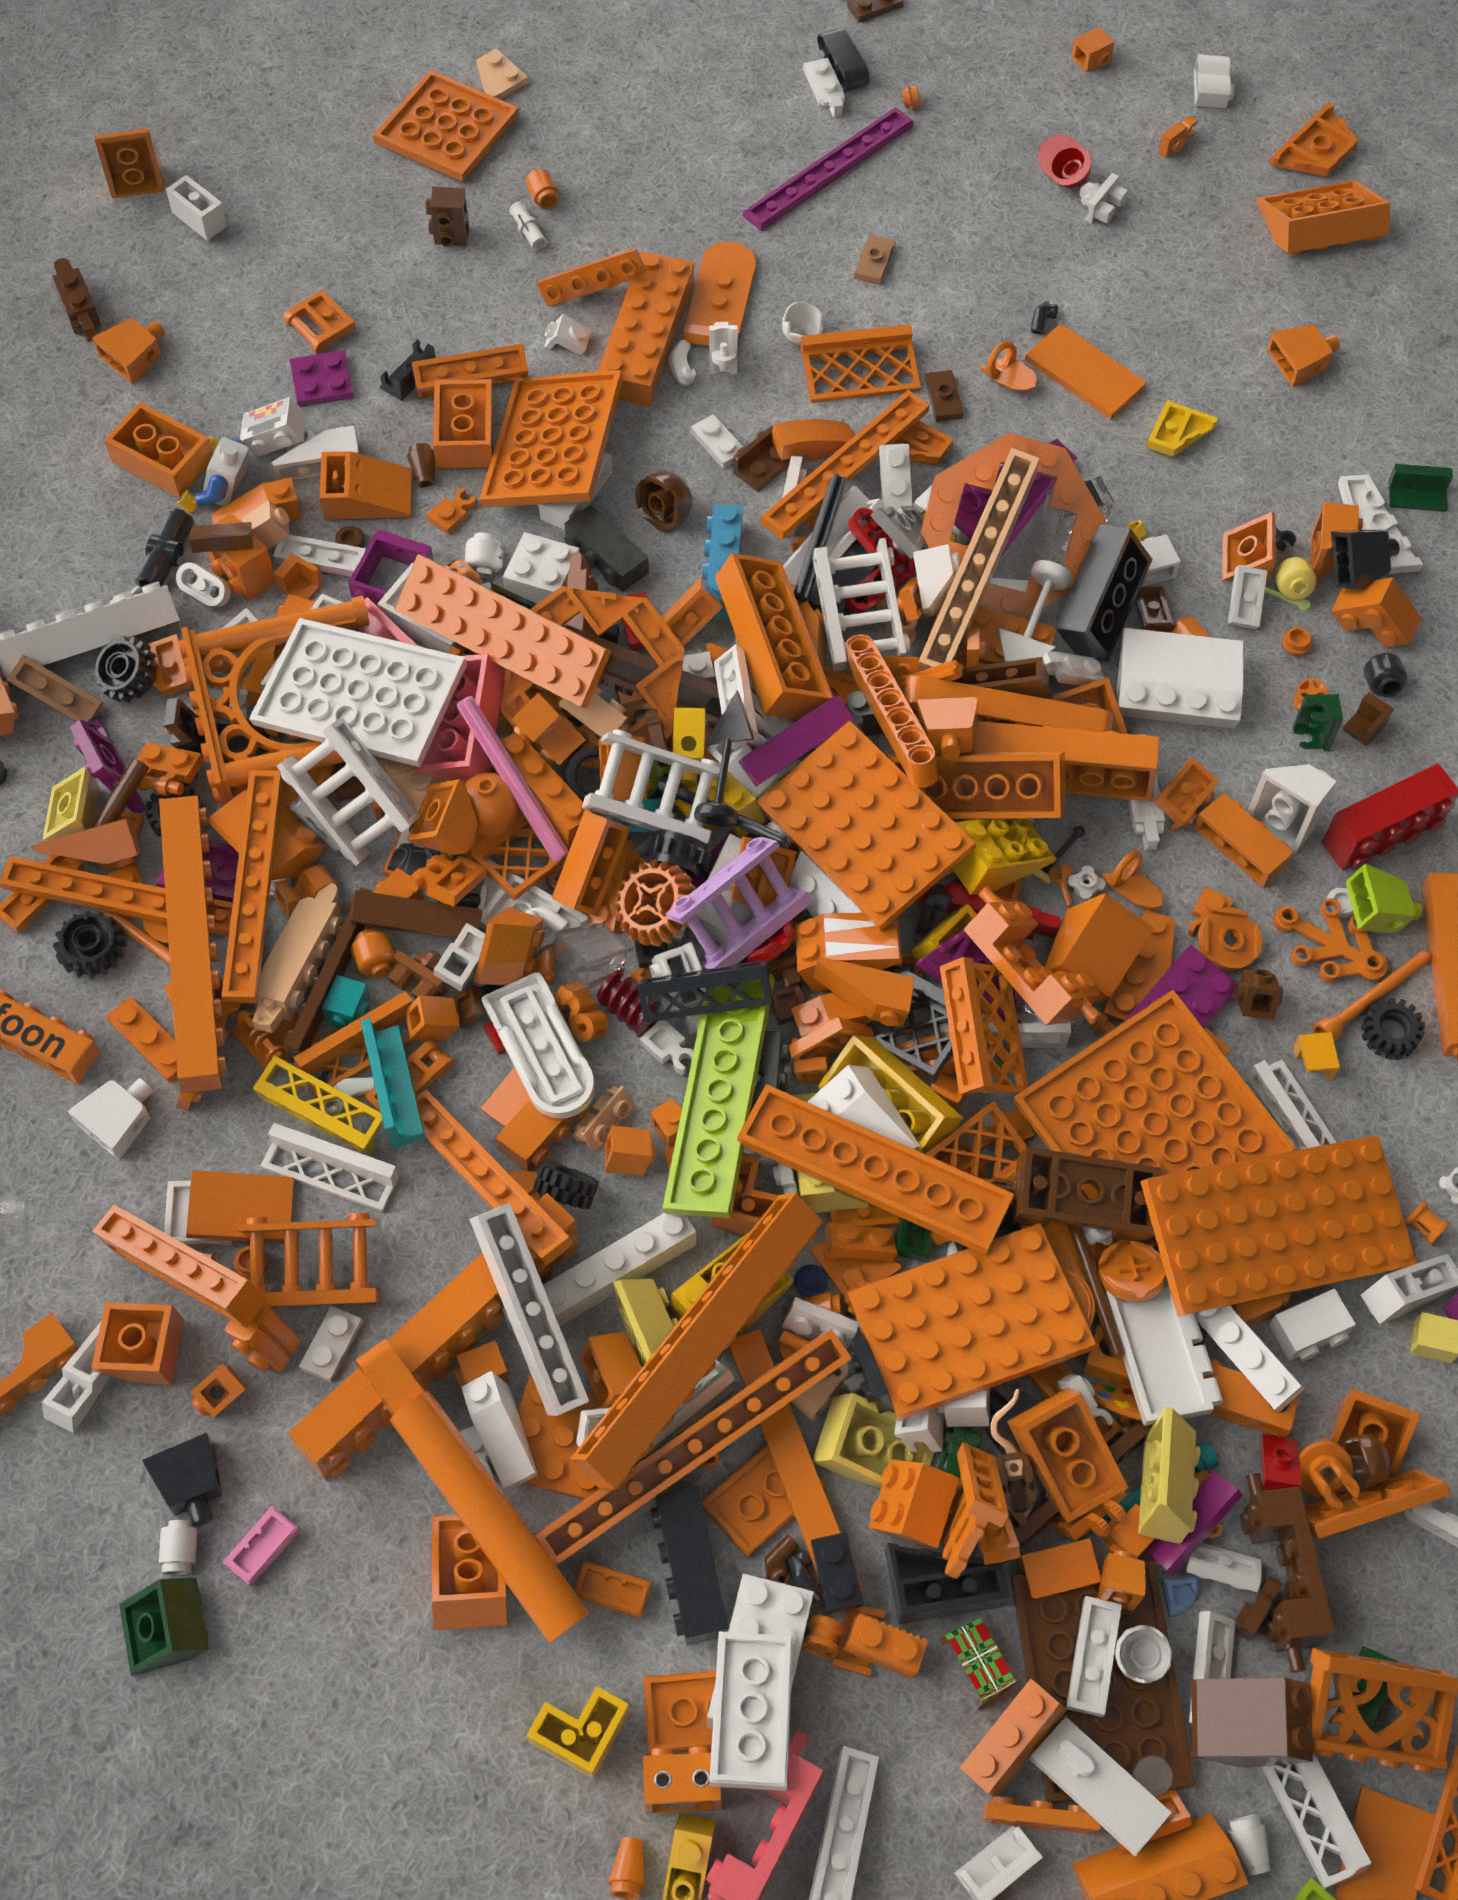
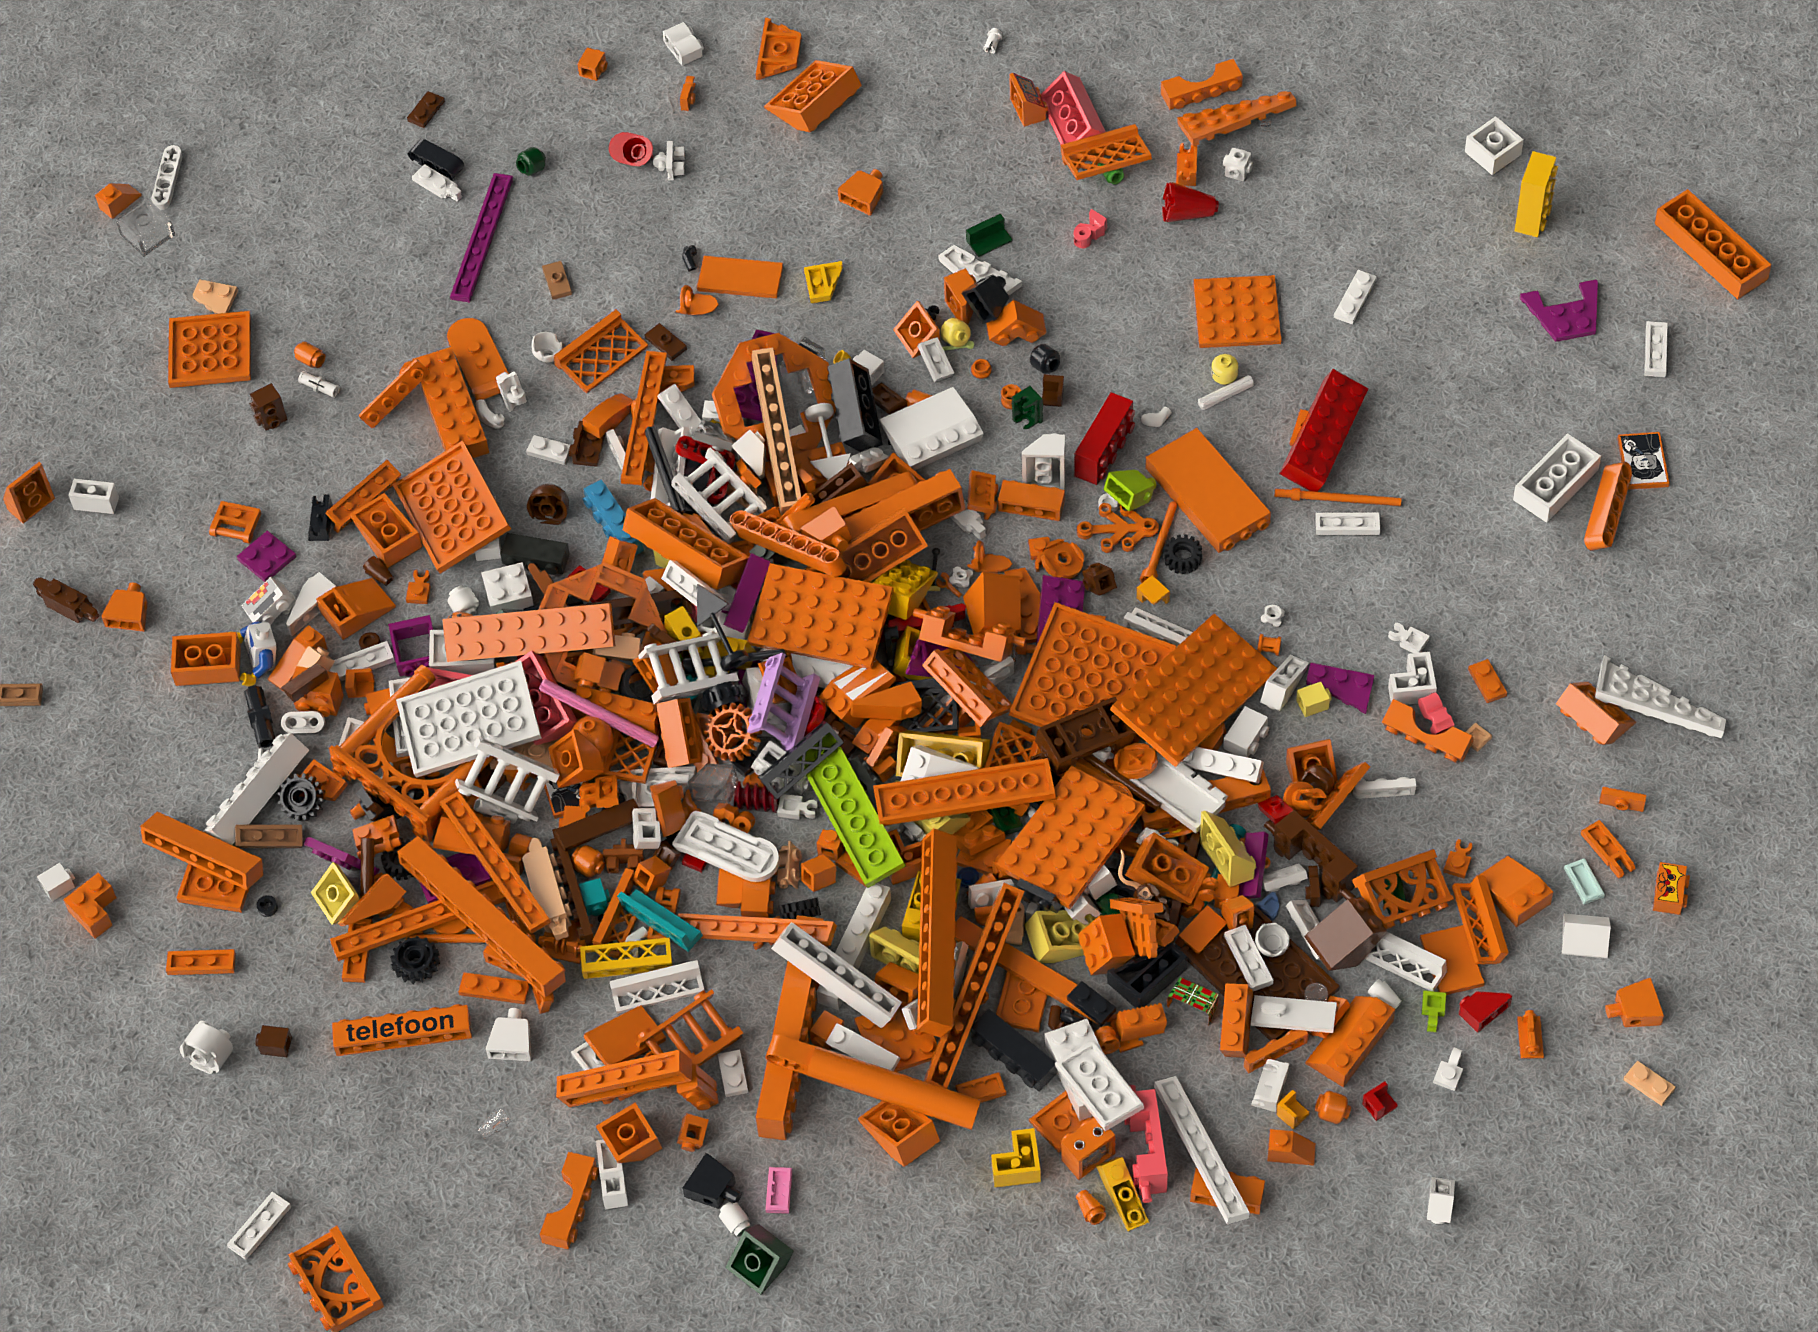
camera: 30 degrees left, 5 degrees down
(567, 334) = (402, 438): white bracket -> none
(911, 97) = (499, 160): orange plate -> none
(944, 115) = (530, 161): none -> dark green head

